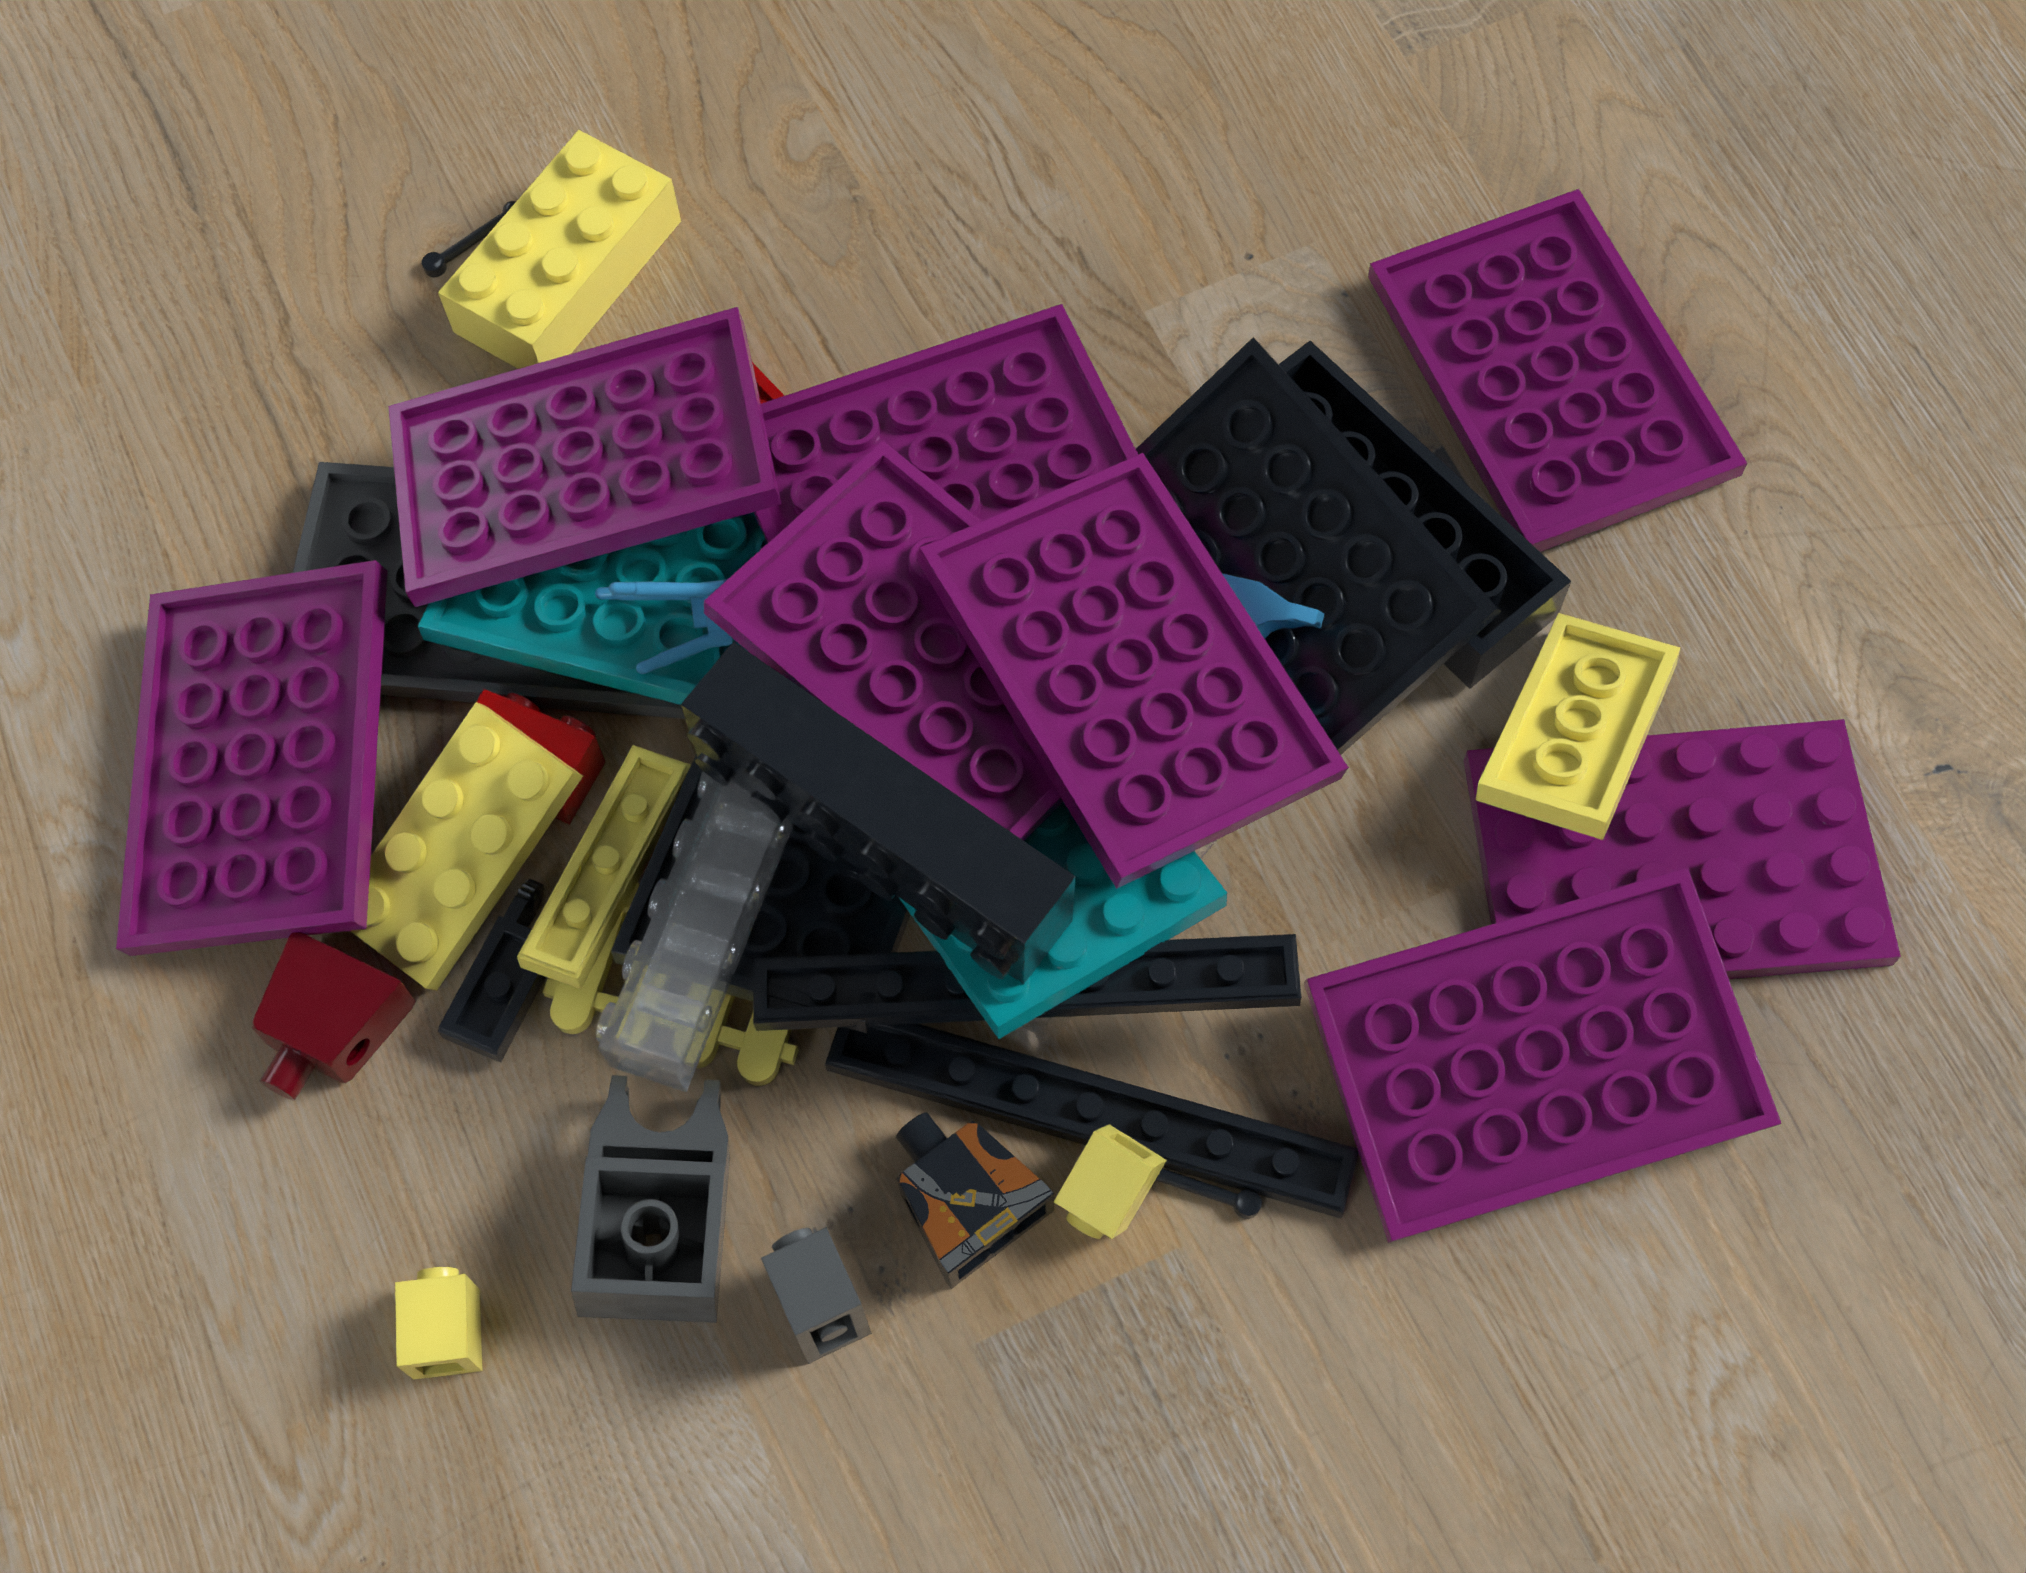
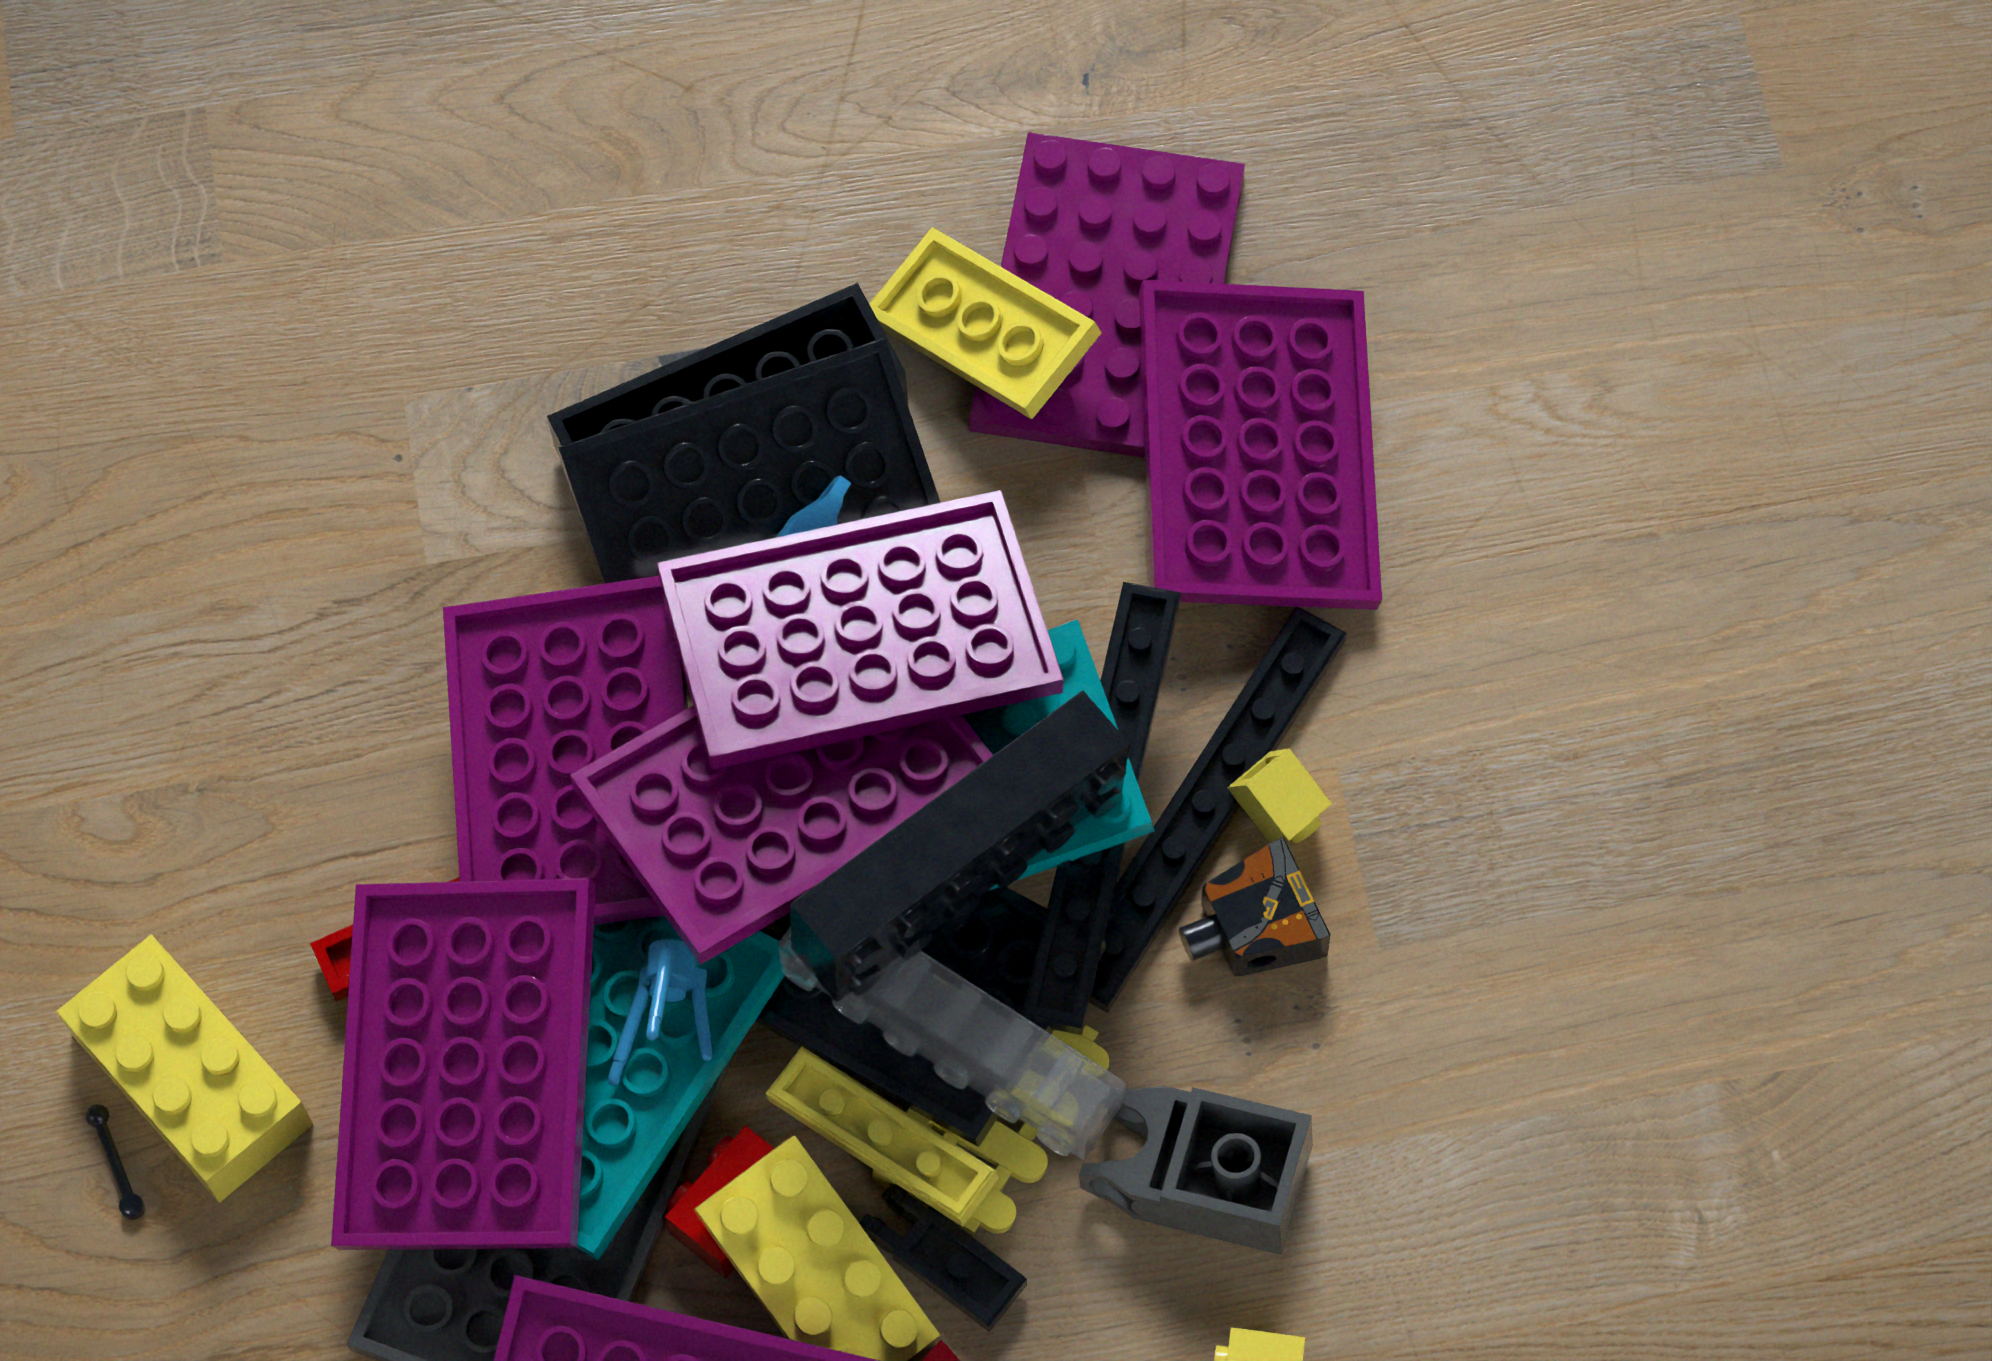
camera: 75 degrees left, 0 degrees up
(816, 1292) = (1321, 1042): dark grey brick -> none
(1245, 1203) = (1315, 708): black hinge -> none
(1555, 371) = (617, 241): magenta plate -> none

